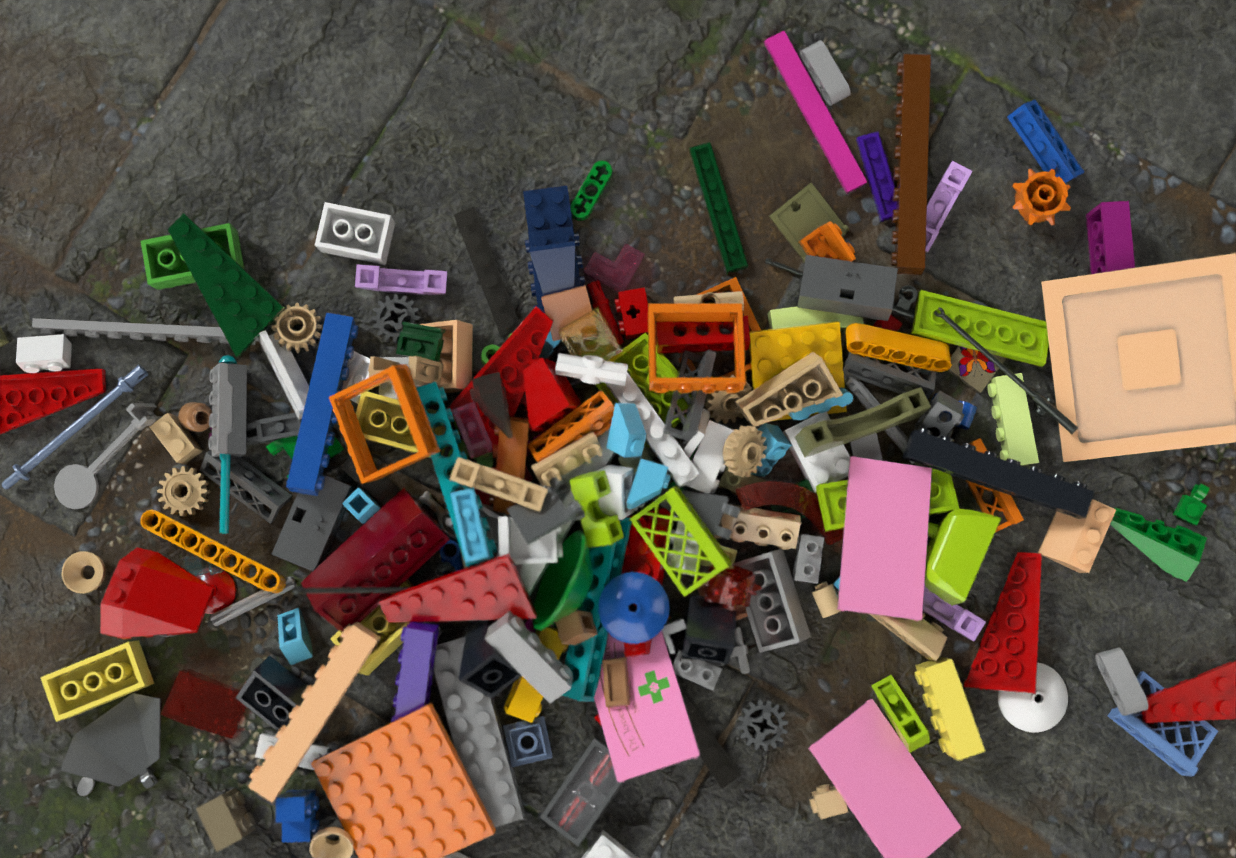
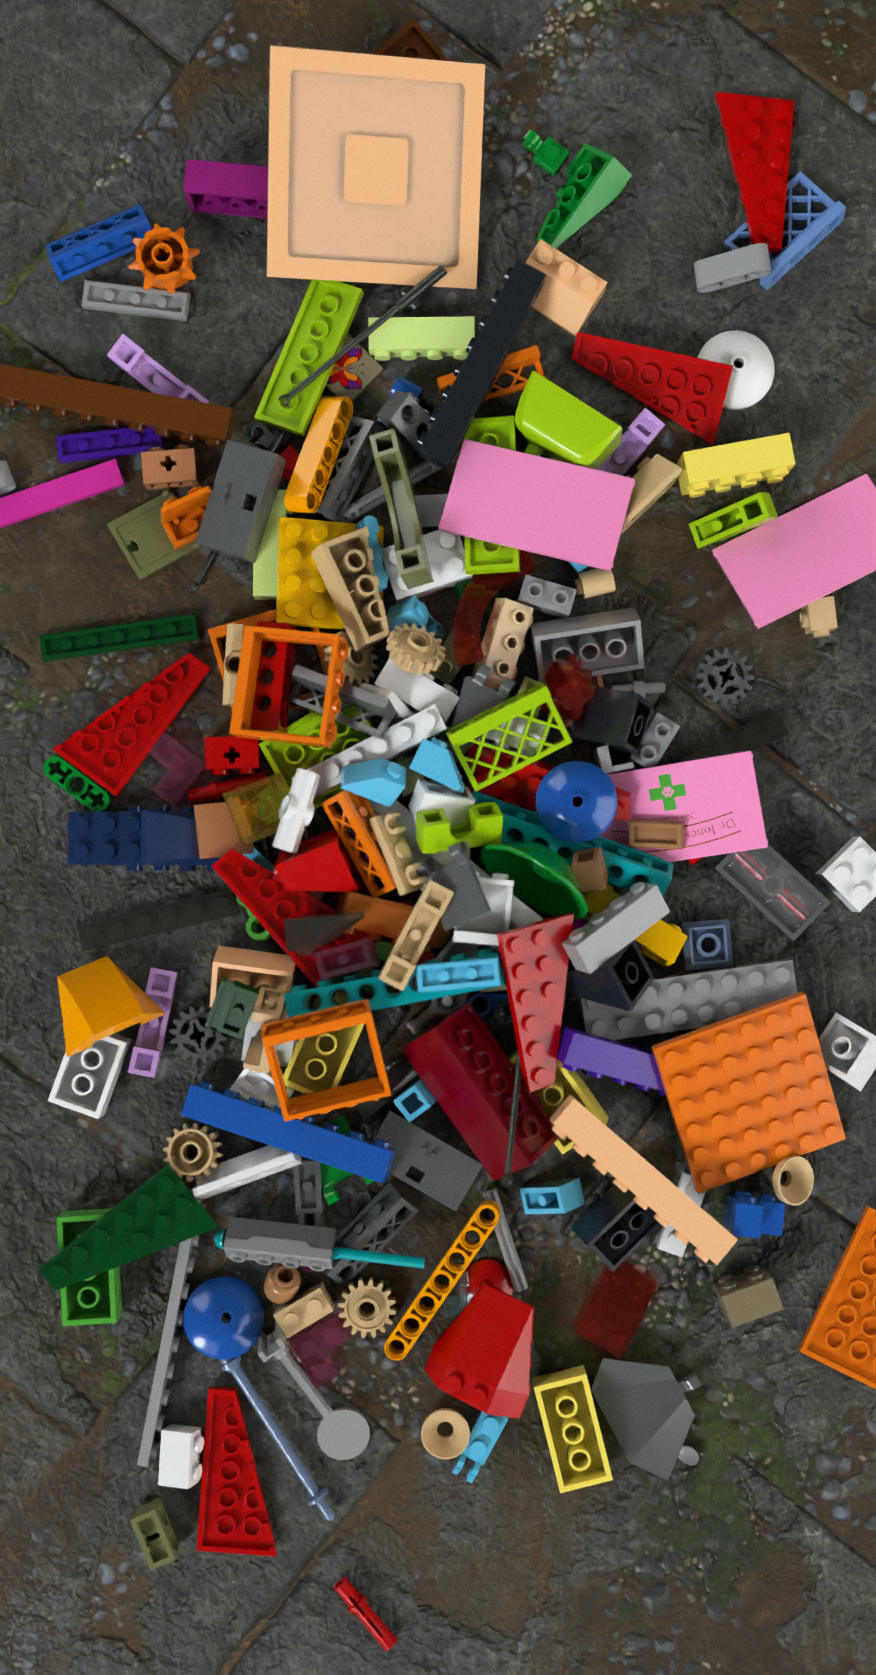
camera: 90 degrees left, 5 degrees up
(80, 604) = (481, 1442): none -> medium azure hinge
(145, 451) = (313, 1349): none -> clear pink plate
(179, 368) = (204, 1312): none -> blue dish
(411, 233) = (100, 1002): none -> light orange wedge
(635, 219) = (122, 736): none -> red wing
(863, 239) = (183, 473): none -> nougat brick
(1002, 179) = (135, 300): none -> light grey tile

